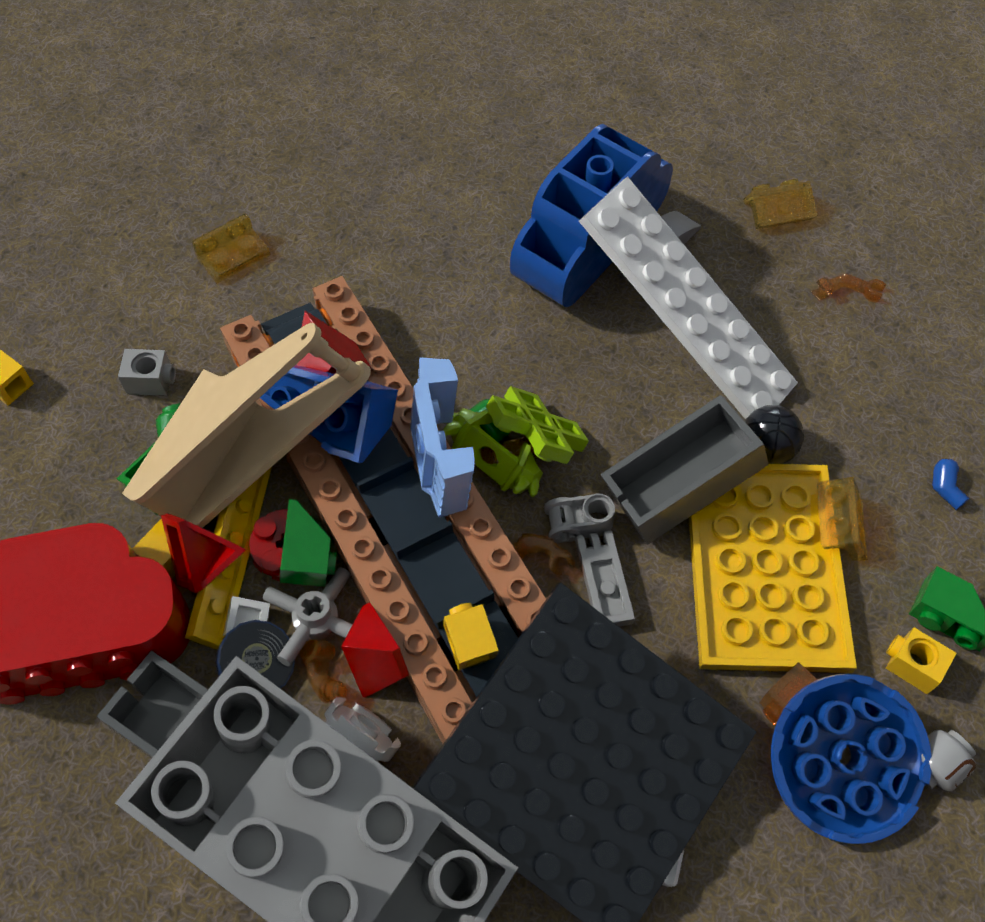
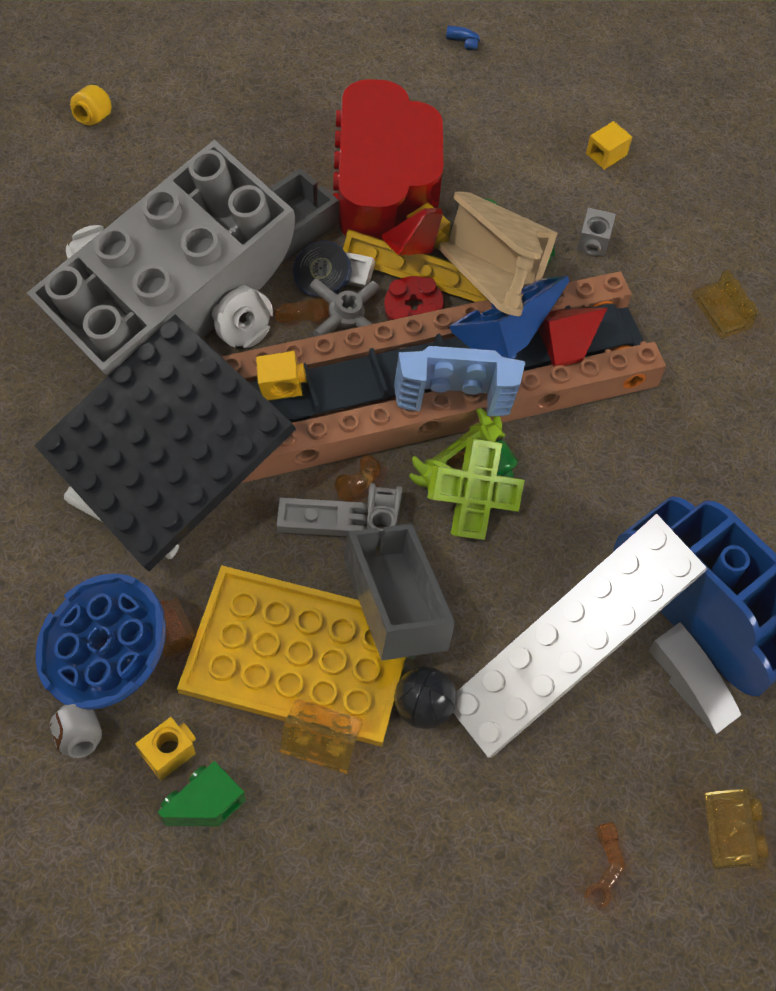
camera: 100 degrees right, 0 degrees up
(305, 550) = (399, 299): green slope -> none
(373, 653) = (302, 324): red slope -> none
(945, 481) = (339, 863): blue arm -> none

